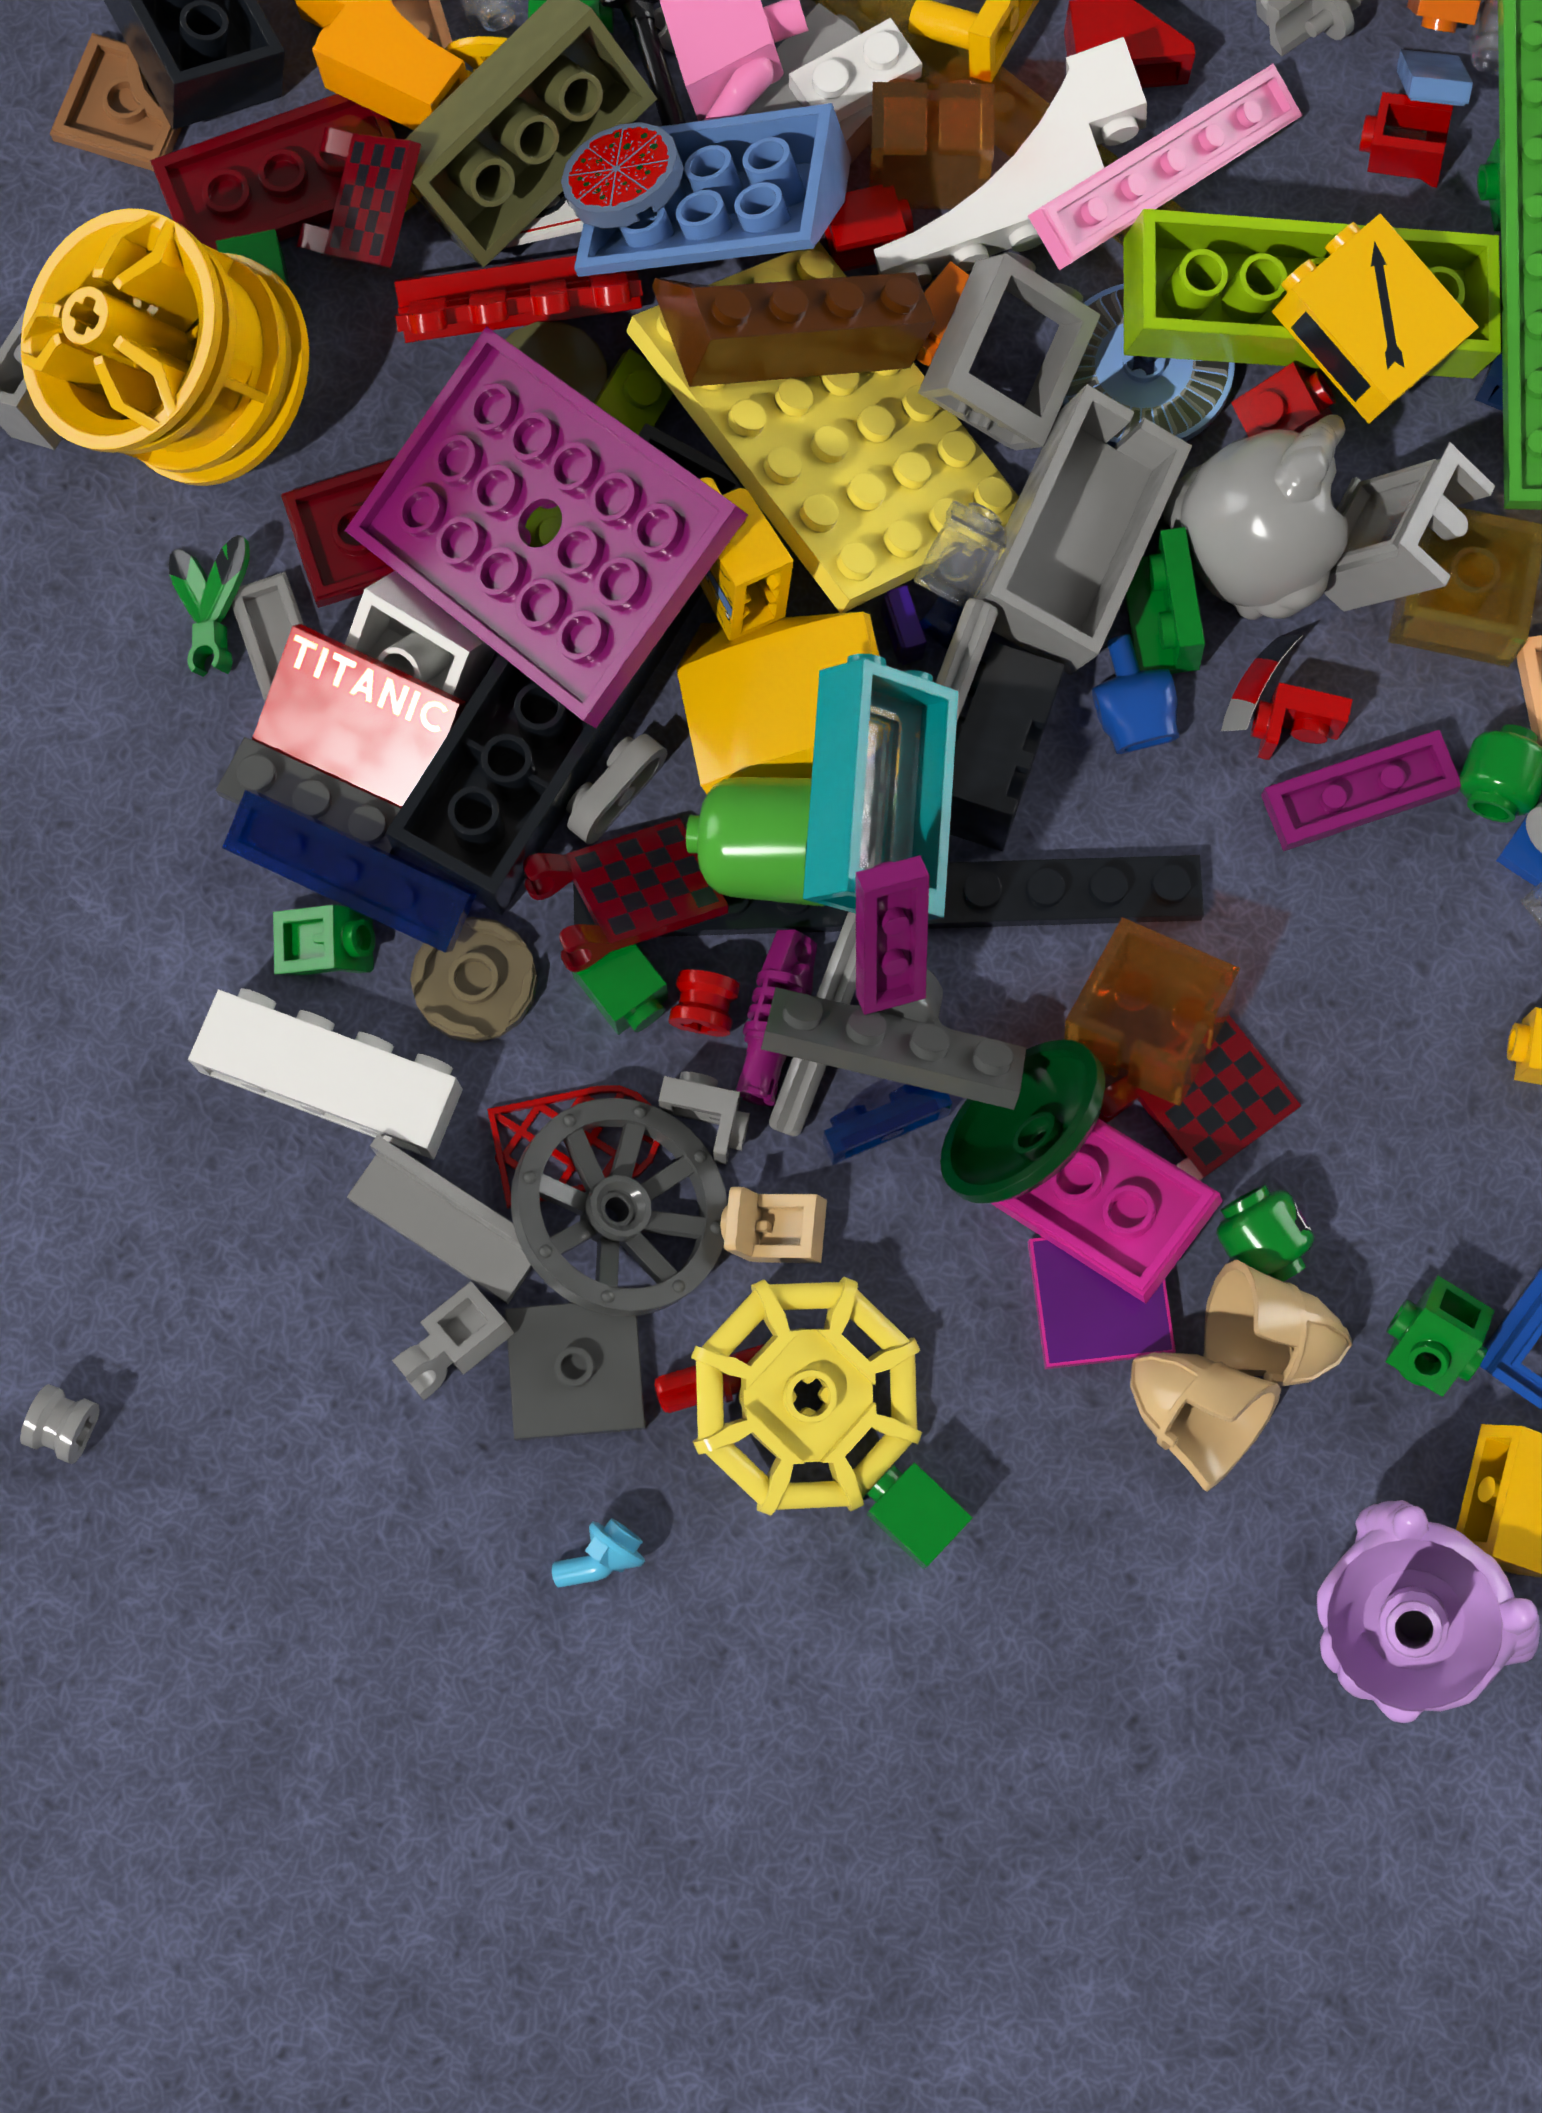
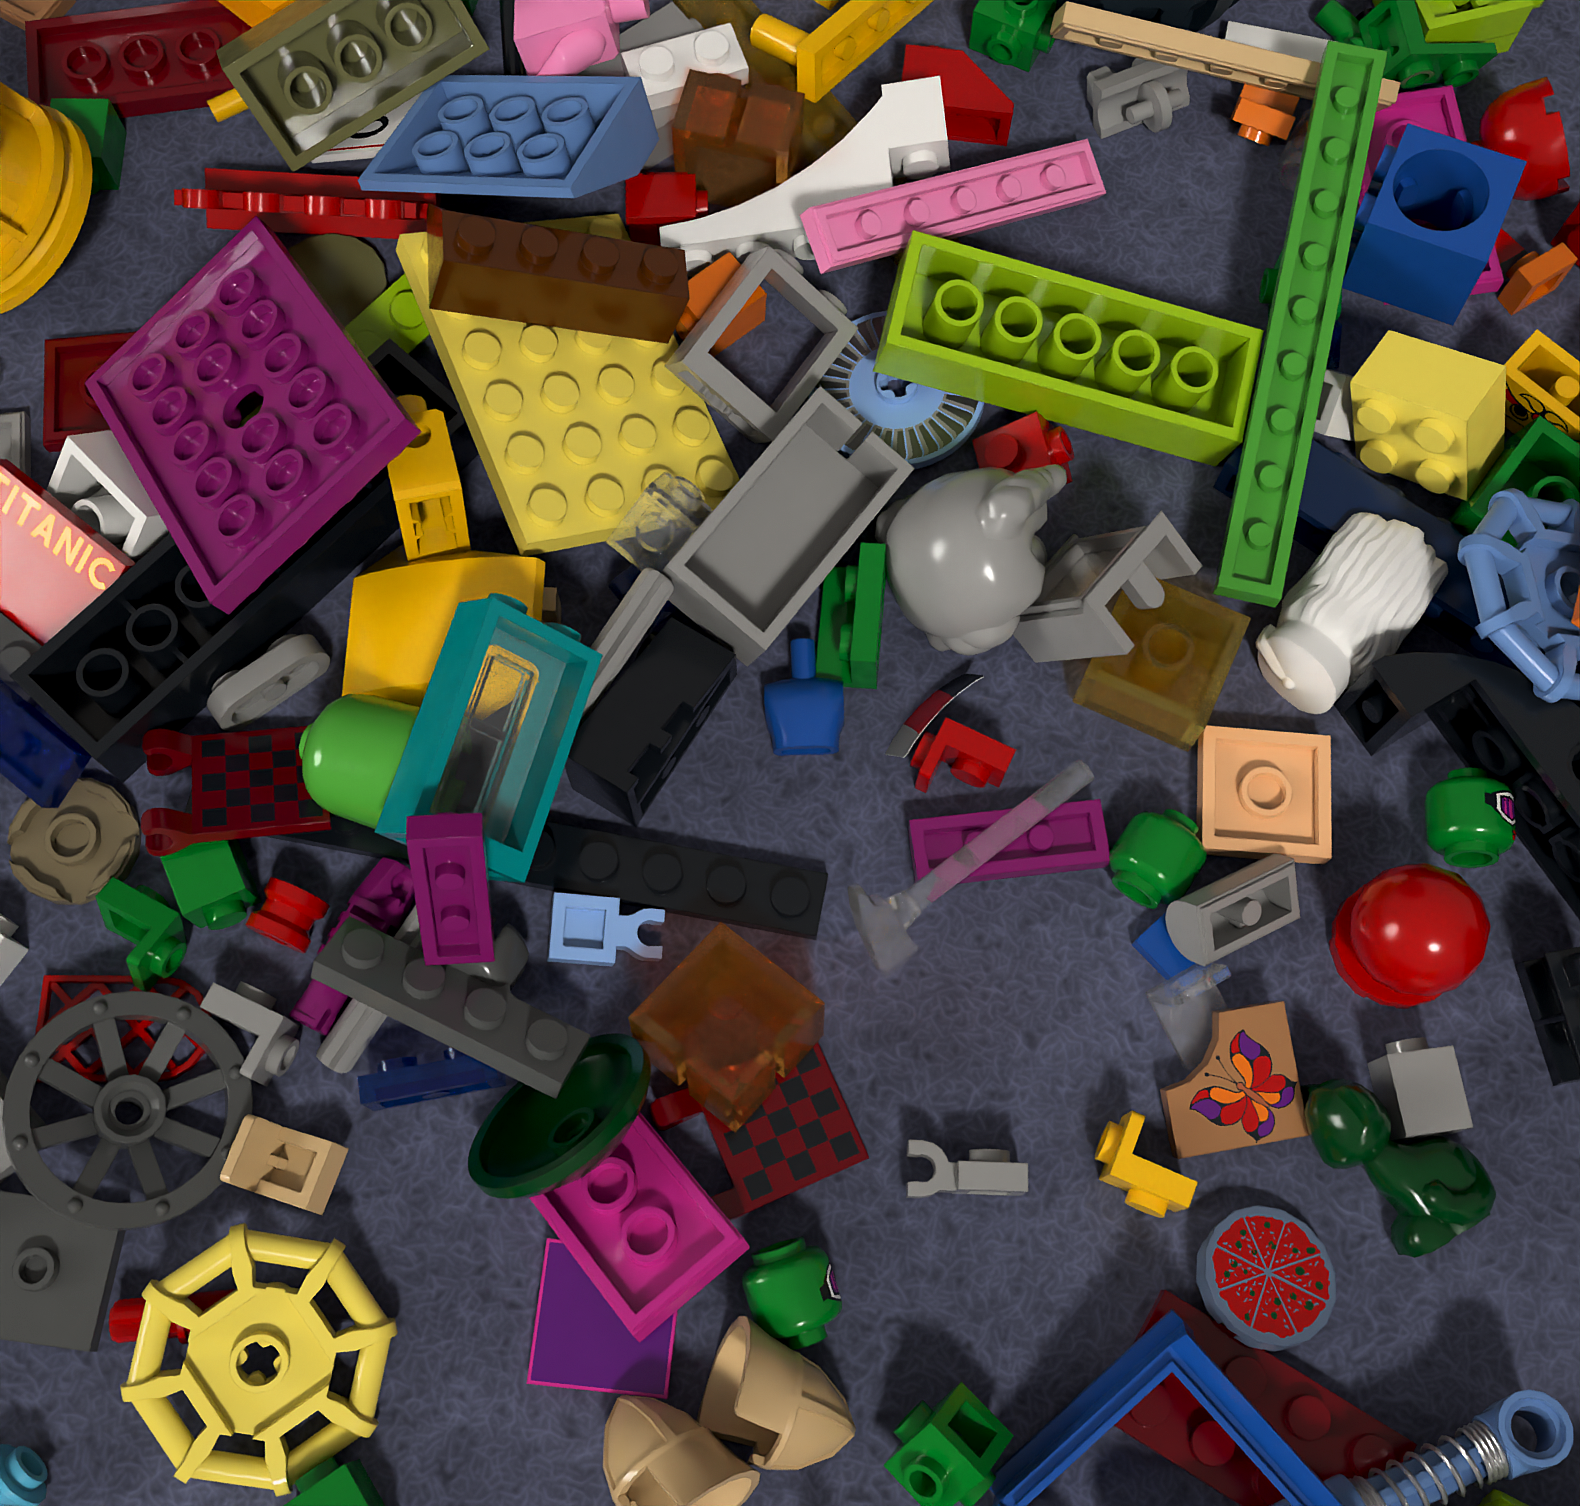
camera: 10 degrees right, 5 degrees down
(368, 200) = (193, 84): dark red flag -> none
(575, 1039) = (149, 923): none -> green bracket
(622, 174) = (430, 104): tile -> none
(903, 625) = (592, 583): dark purple tile -> none
(993, 955) = (591, 930): none -> light blue plate
(1268, 885) = (885, 921): none -> clear piece
(1372, 316) = (1116, 377): yellow brick -> none
(1406, 138) = (1201, 229): red window -> none
(1409, 1096) = (984, 1174): none -> light grey plate
(1434, 77) = (1237, 180): medium blue tile -> none

